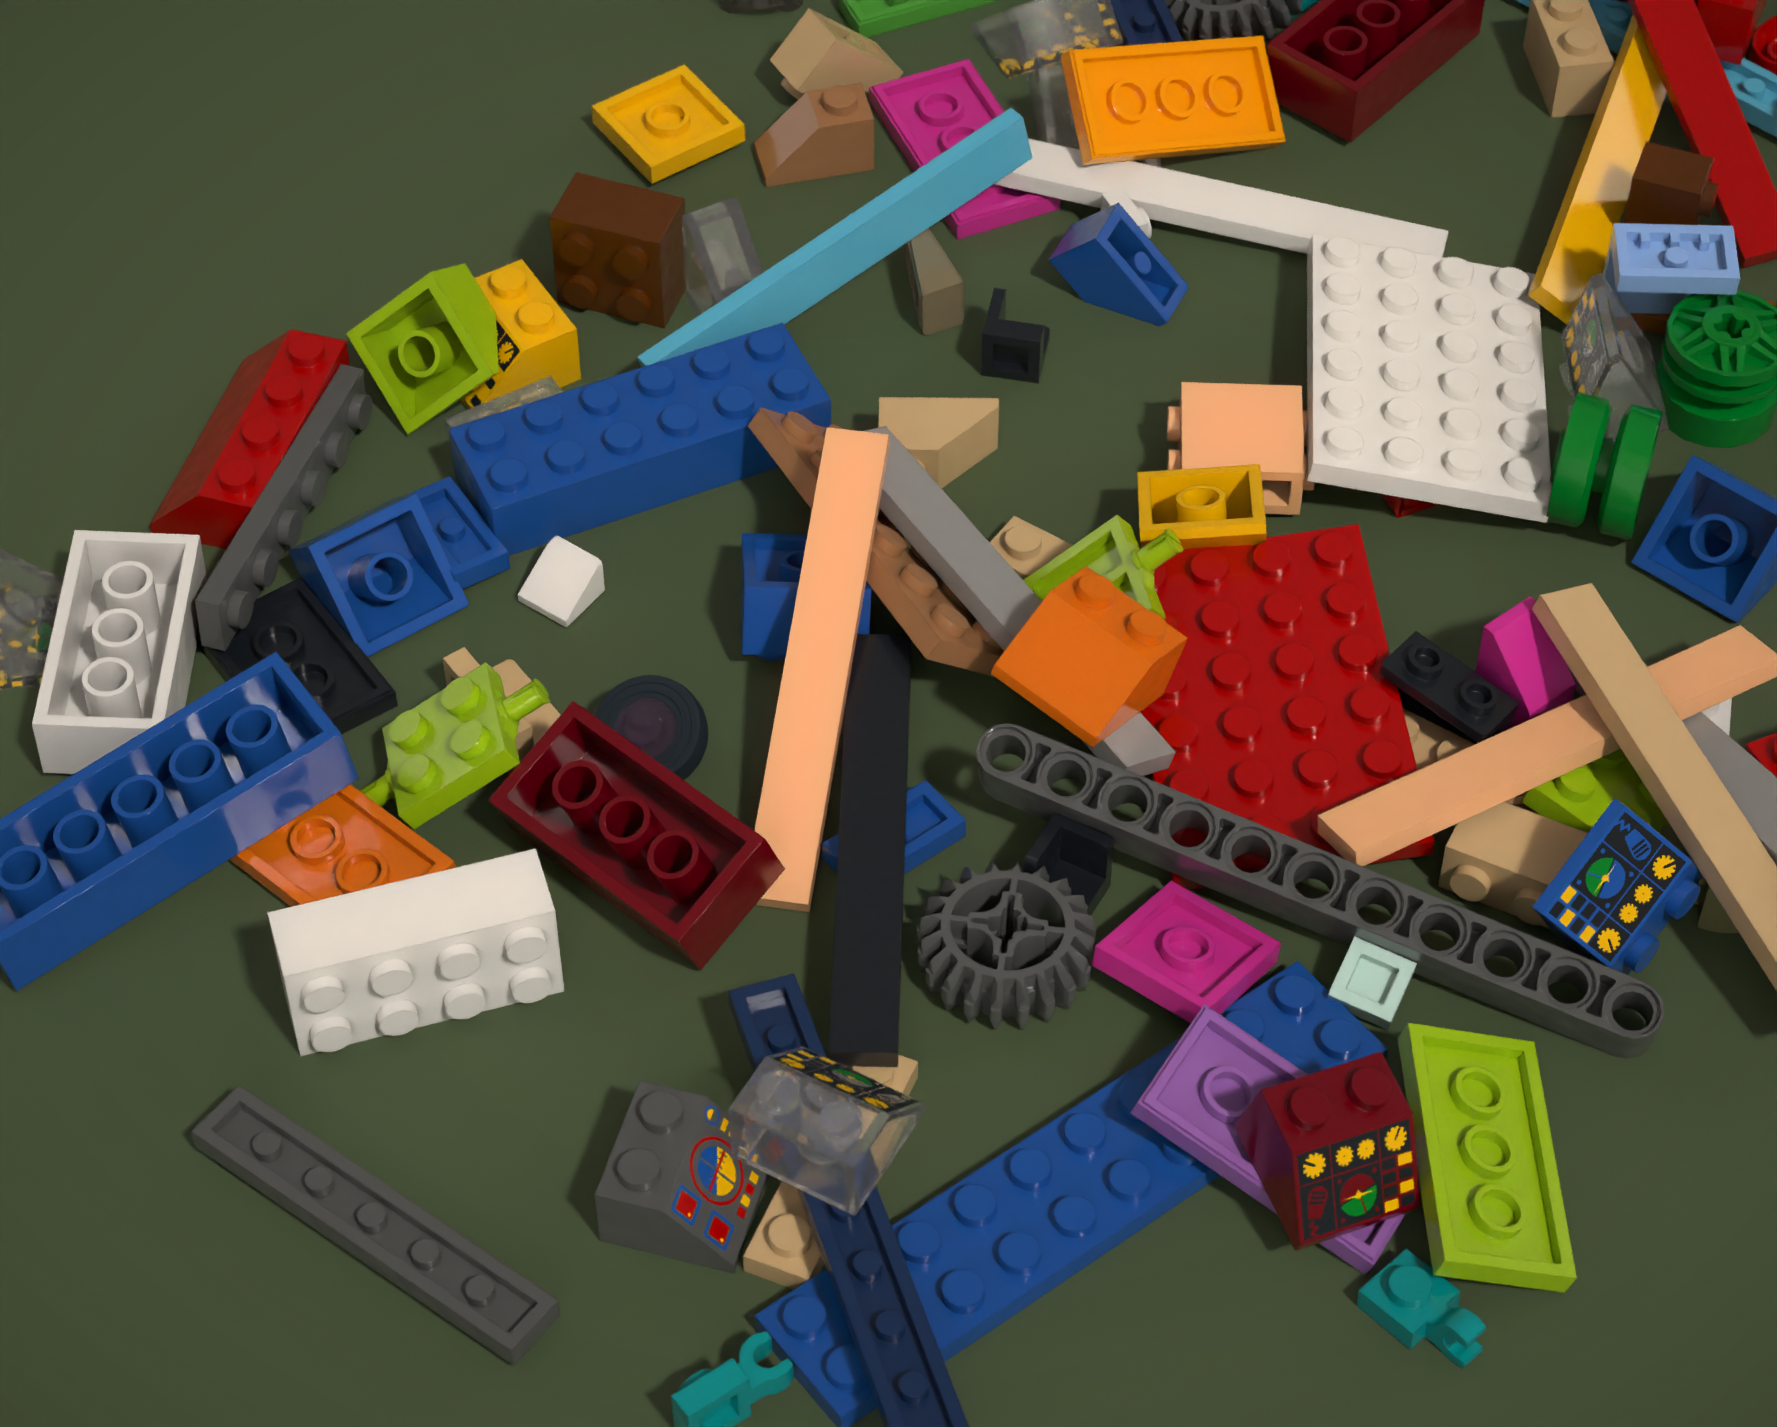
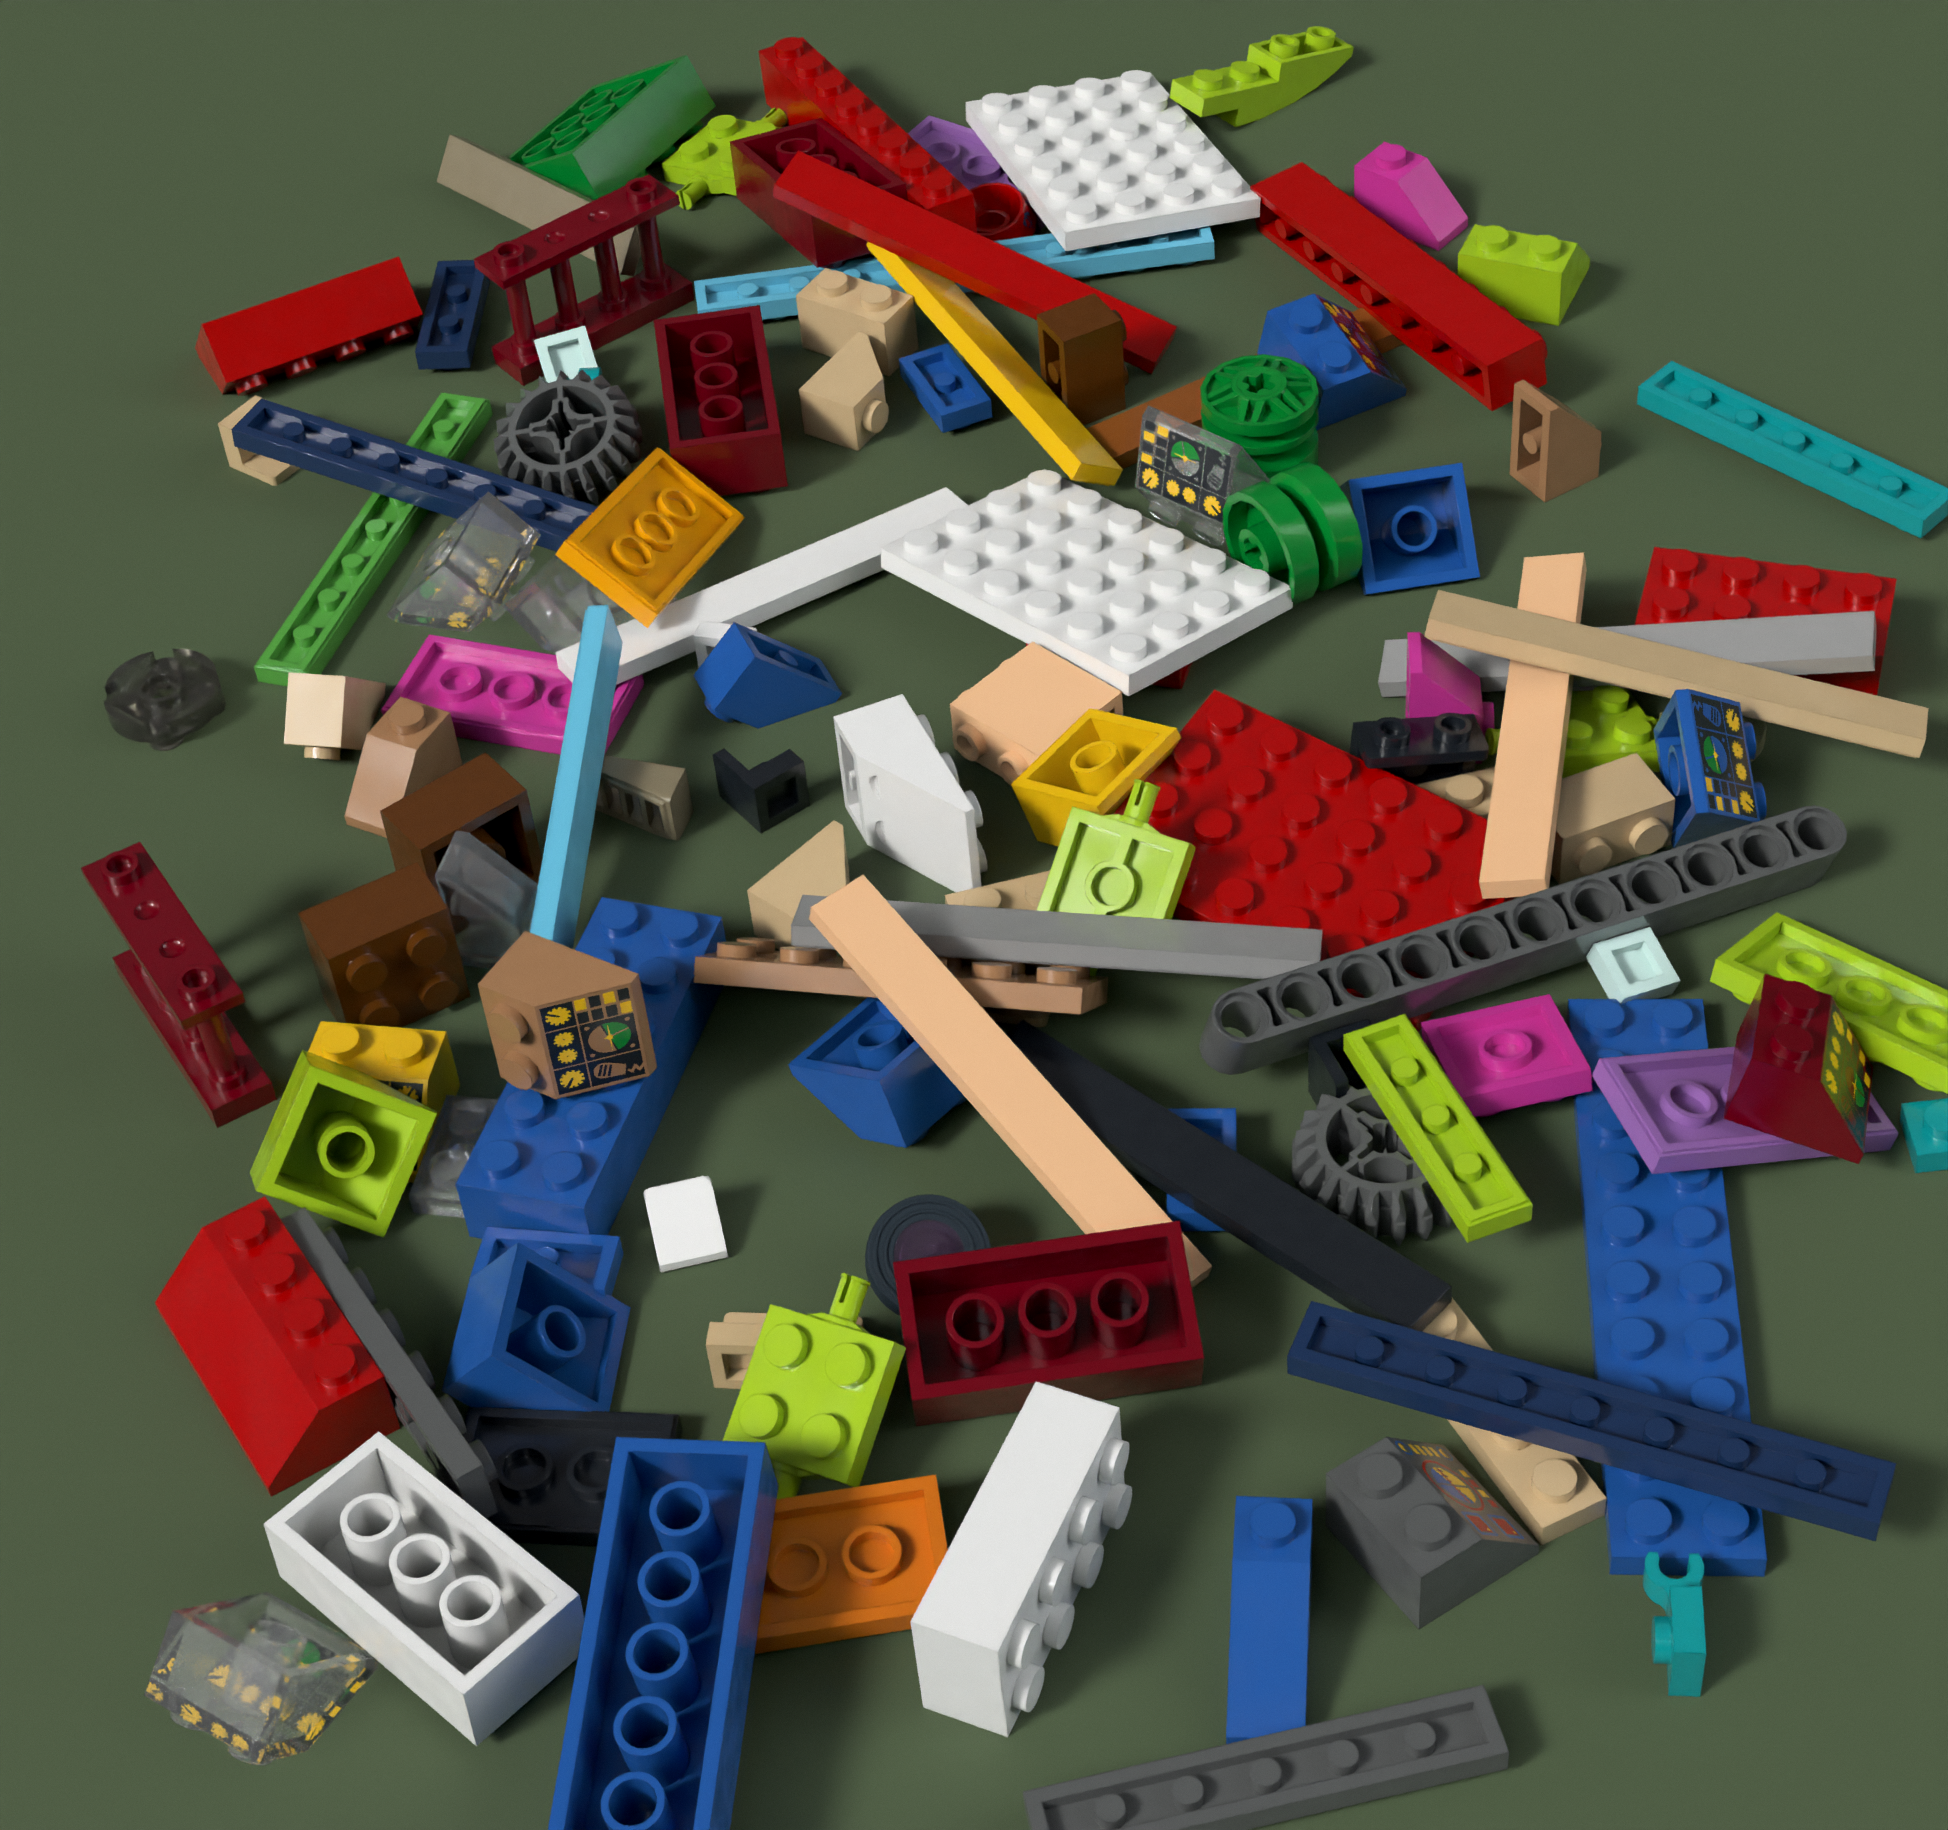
camera: 45 degrees left, 5 degrees down
(483, 158) = (179, 984): none -> dark red fence
(513, 1136) = (1269, 1616): none -> blue slope
(595, 369) = (565, 1019): none -> medium nougat slope
(668, 123) = (259, 852): yellow plate -> none
(777, 194) = (470, 799): none -> reddish brown brick
(820, 1126) = (1512, 1368): clear slope -> none
(1041, 947) = (1437, 1128): none -> lime tile
(1077, 415) = (909, 794): none -> white slope
(1091, 657) = (1202, 905): orange slope -> none
(1483, 105) = (846, 397): none -> tan slope
(1554, 155) = (945, 388): none -> blue plate
(1664, 263) = (1163, 377): light blue bracket -> none

